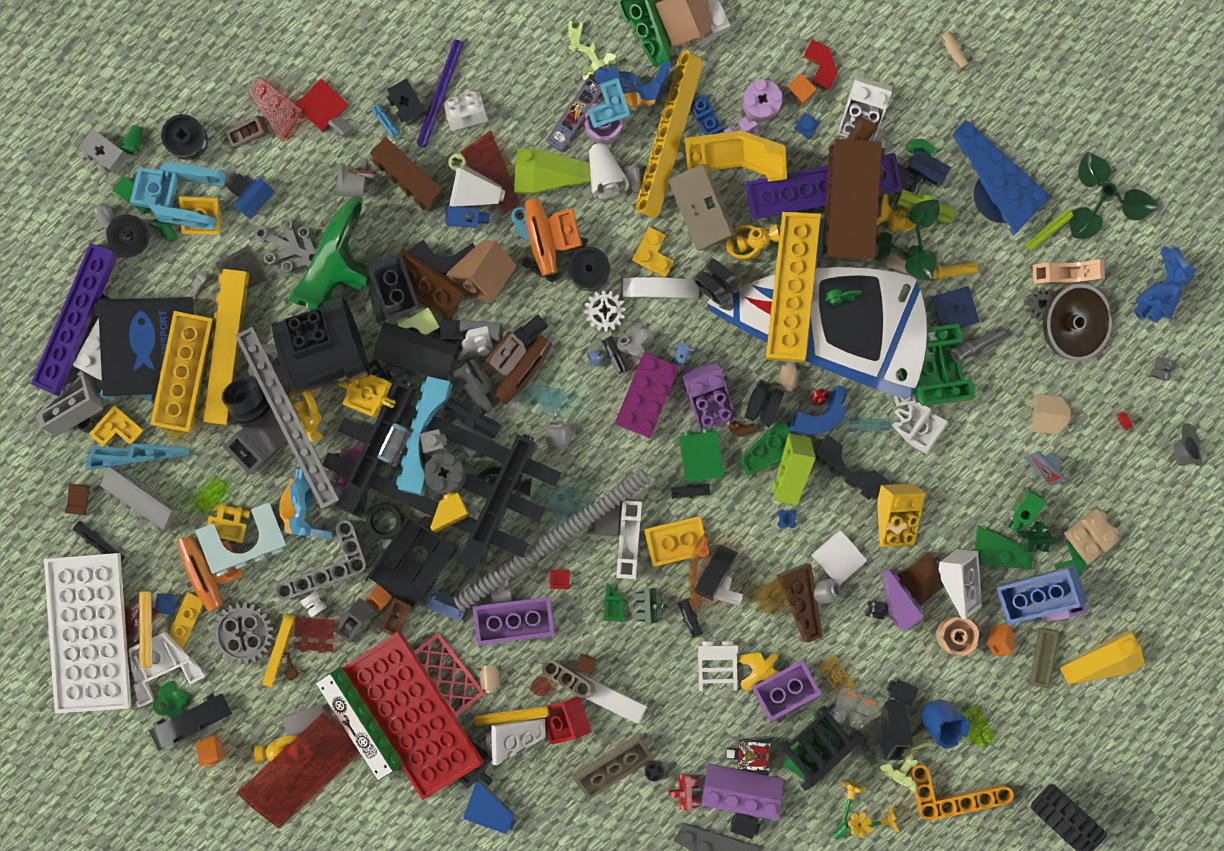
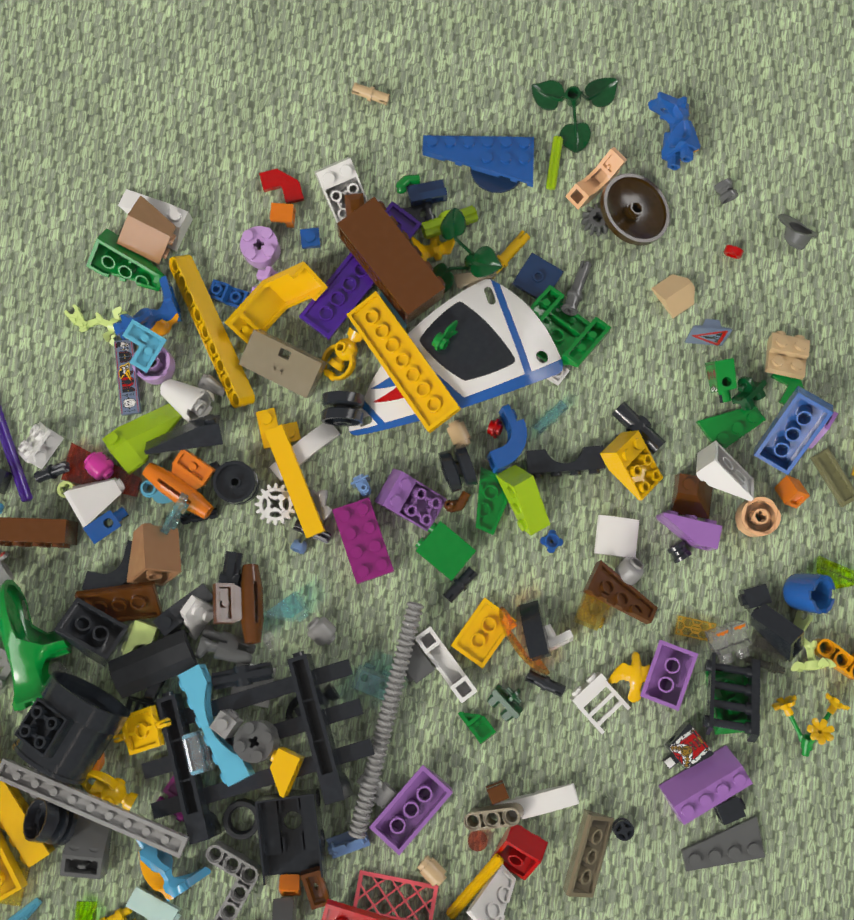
camera: 35 degrees left, 5 degrees down
(458, 140) = (52, 471): none -> black axle
(497, 167) = (99, 466): none -> dark pink head
(524, 252) = (175, 513): none -> clear light blue plate
(559, 579) = (419, 742): red plate -> none
(590, 206) = (195, 434): none -> black wedge
(634, 306) = (294, 481): none -> yellow tile
(684, 793) = (661, 825): red hips -> none
(919, 426) = (588, 385): white plate -> none
(932, 488) = (635, 422): none -> black piece

